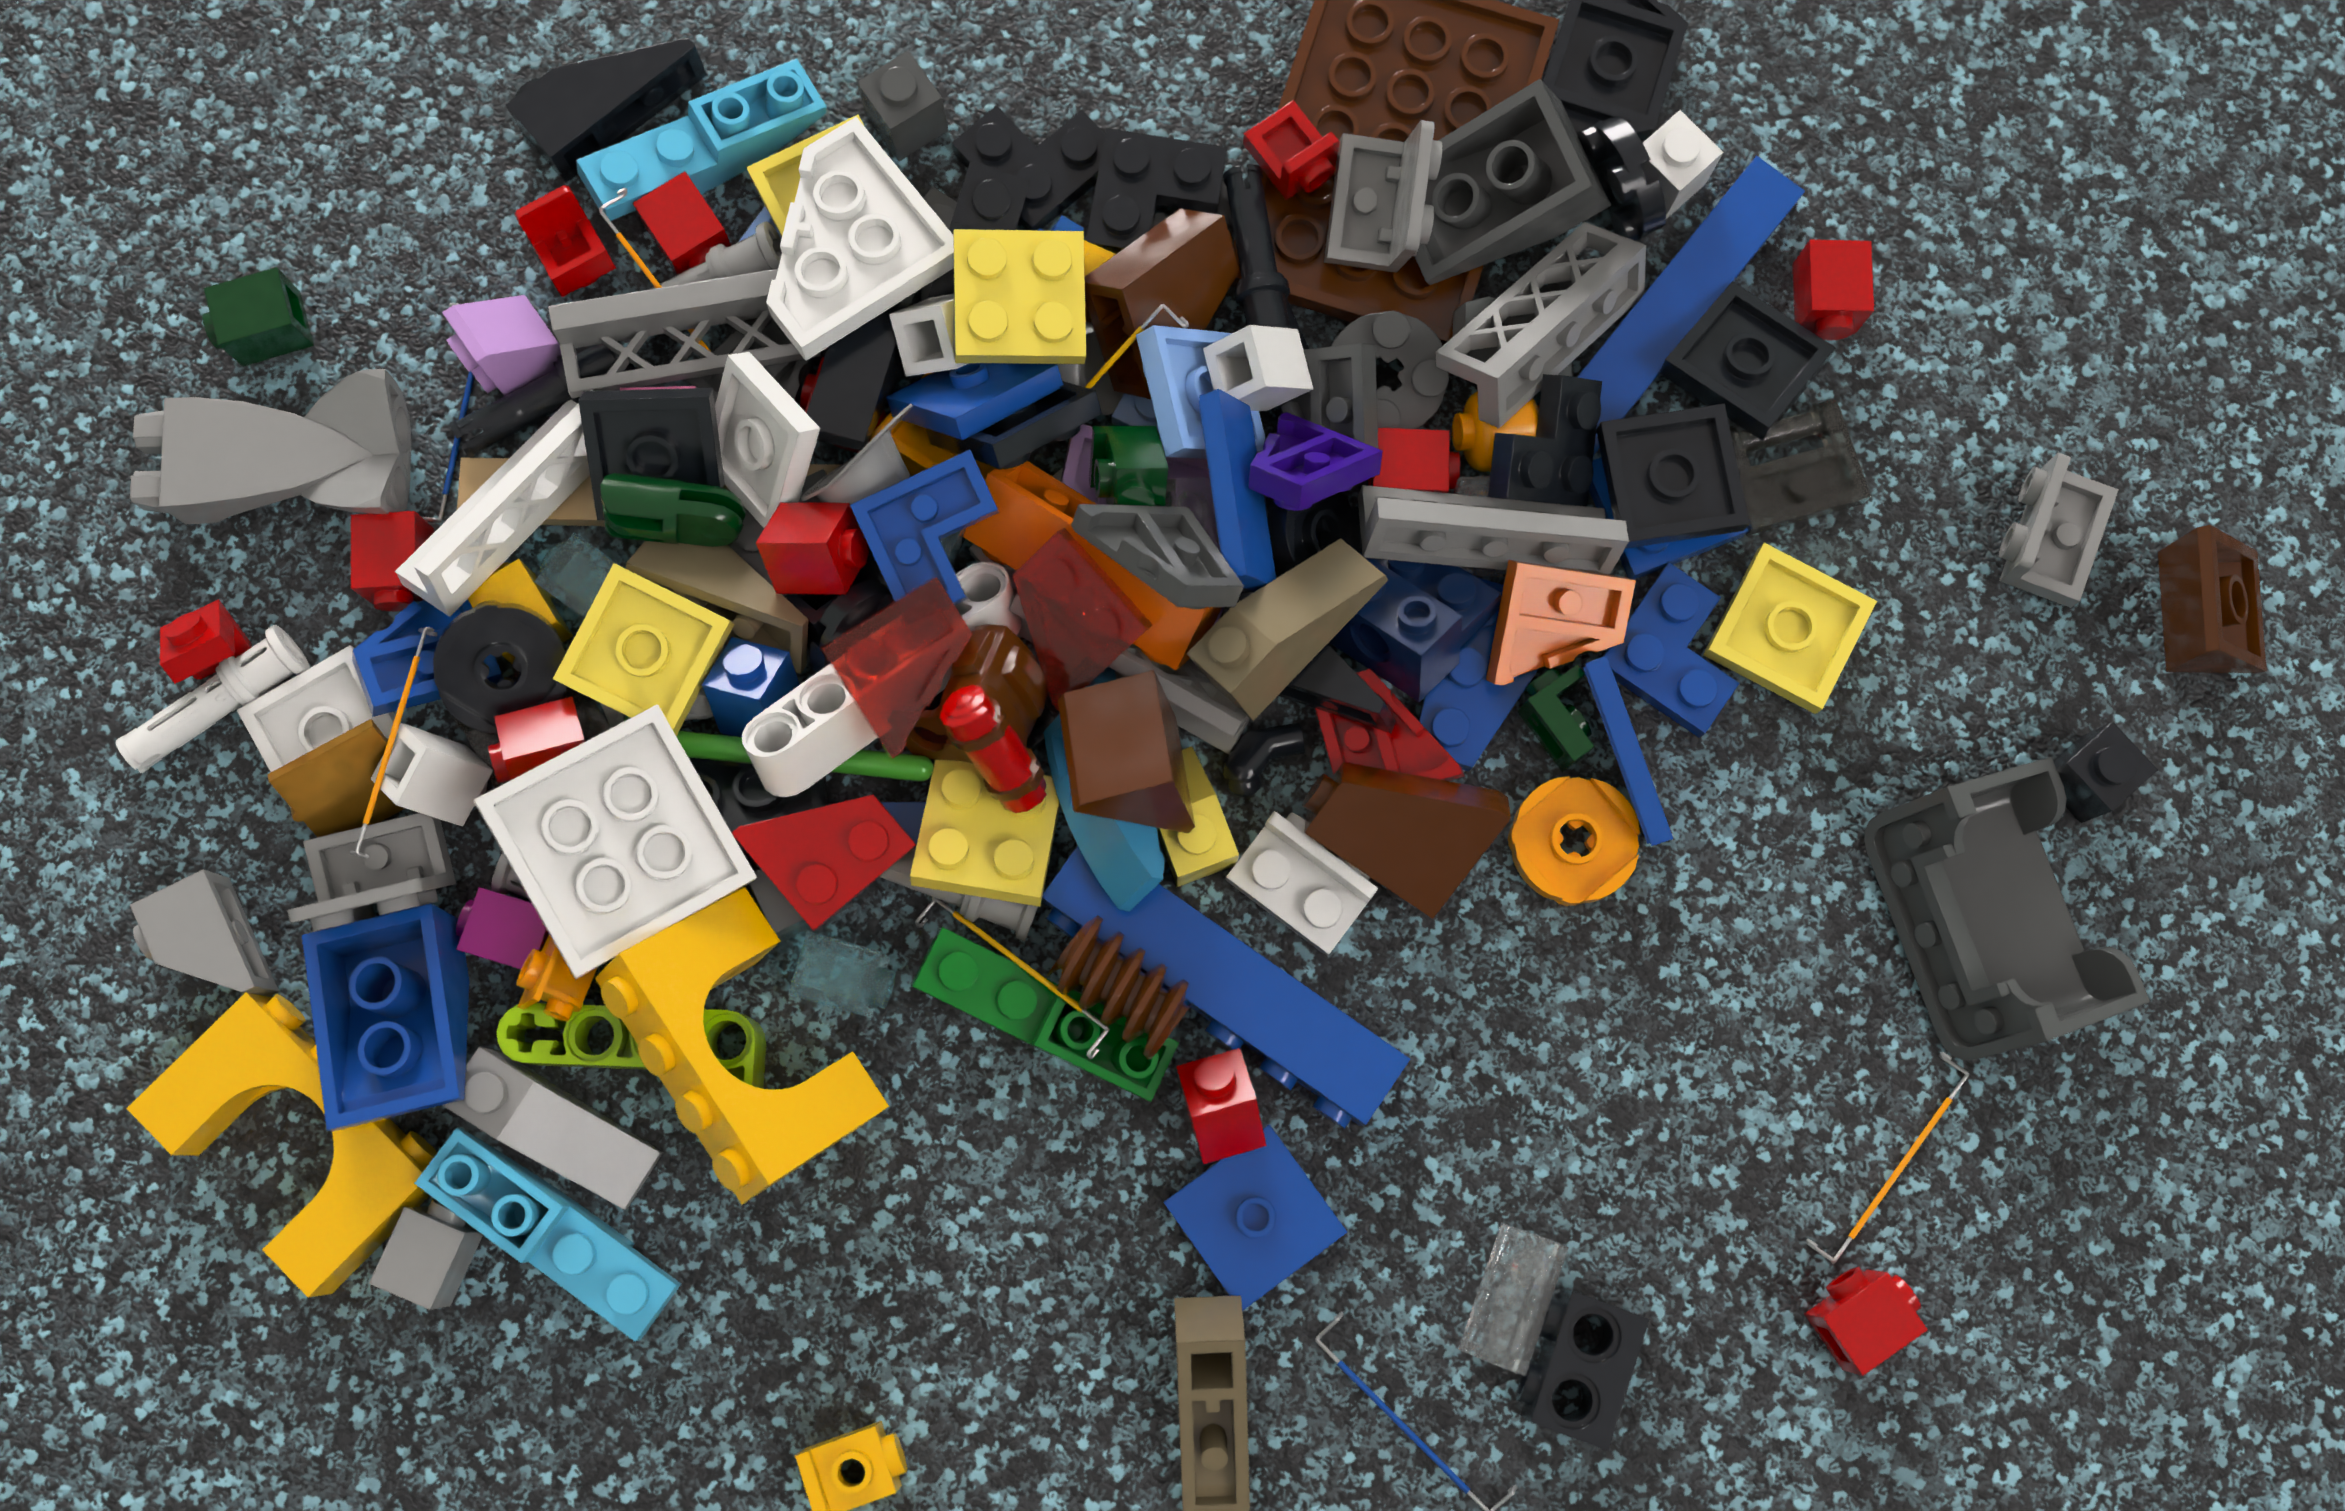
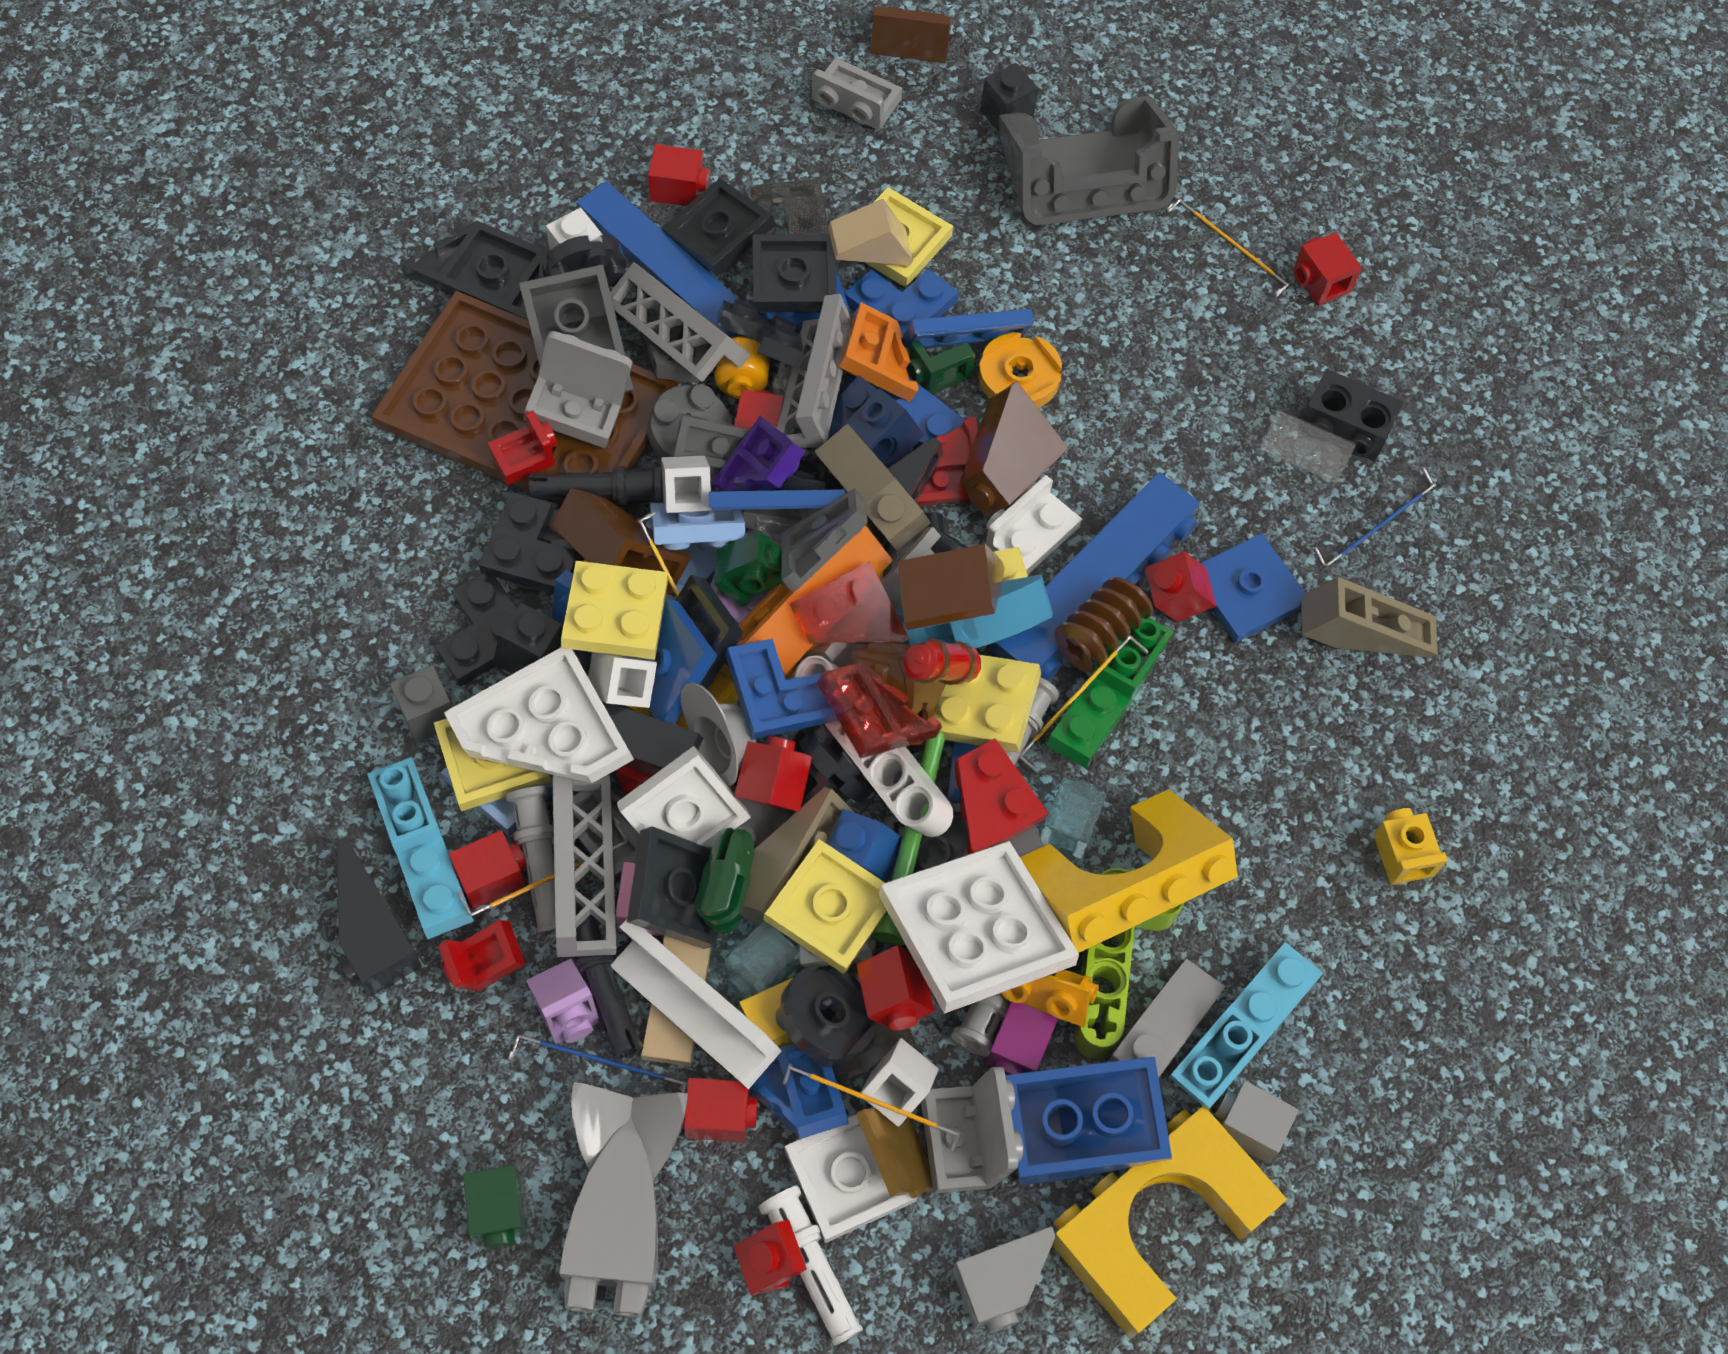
camera: 85 degrees left, 15 degrees down
(1754, 580) = (870, 236): none -> tan slope

